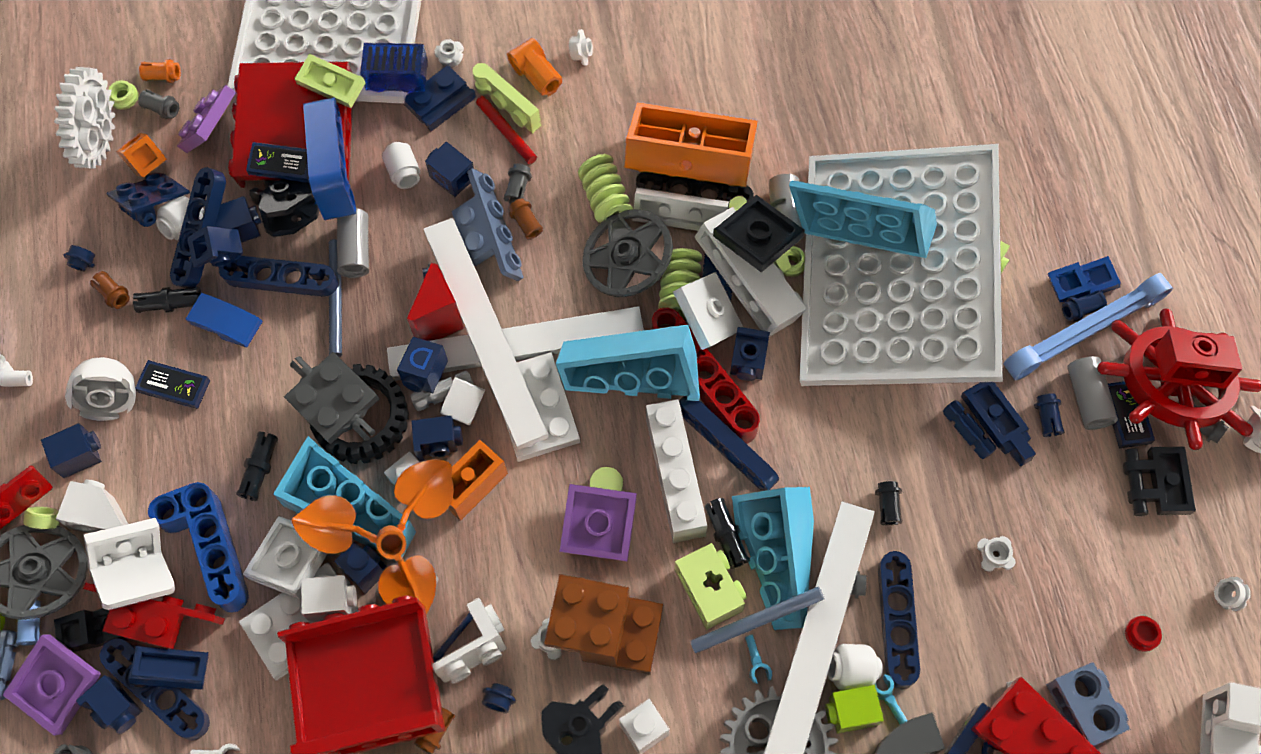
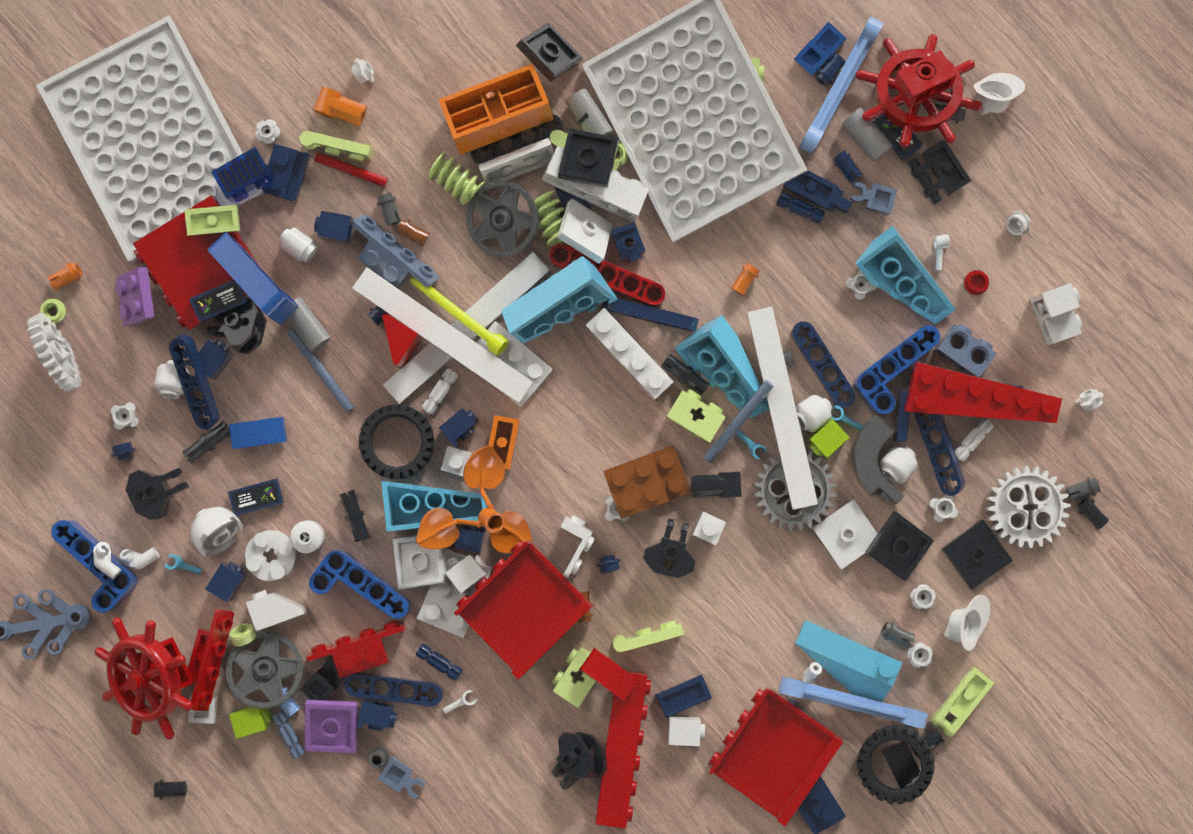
camera: 35 degrees left, 20 degrees up
(42, 404) = (182, 565): none -> medium azure hand
(73, 312) = (155, 490): none -> black hinge
(103, 222) = (117, 414): none -> white plate
(114, 295) = (164, 460): dark orange pin -> none
(126, 441) = (262, 543): none -> white plate
(128, 564) = (327, 630): white bracket -> none
(141, 155) = (109, 351): orange brick -> none
(141, 197) = (137, 378): dark blue hinge -> none
(165, 106) = (85, 302): dark grey pin -> none
(168, 668) = (396, 672): dark blue tile -> none
(189, 454) = (316, 536): none -> white head
(215, 246) = (220, 391): dark blue brick -> none
(227, 689) = (439, 662): none -> dark blue axle
(279, 271) = (271, 378): dark blue beam -> none
(332, 398) = (376, 445): dark grey plate -> none
(422, 365) = (419, 386): dark blue brick -> none
(441, 651) = (558, 519): dark blue hinge -> none
(462, 401) = (460, 392): white slope -> none
(535, 369) = (495, 342): none -> neon yellow piece
(598, 522) = (601, 418): medium lavender plate -> none
(607, 479) = (588, 388): yellowish green tile -> none
(694, 687) = (722, 485): none -> black piece
(782, 125) = (549, 52): none -> black plate
(860, 468) = (745, 279): none -> orange pin
(864, 219) = (653, 101): medium azure slope -> none
(889, 502) = (776, 291): black pin -> none
(994, 672) = (898, 365): none -> blue beam
(1054, 568) = (898, 271): none -> medium azure wedge
(1068, 468) = (878, 198): none -> sand blue plate
(1119, 561) = (940, 242): none -> white hand

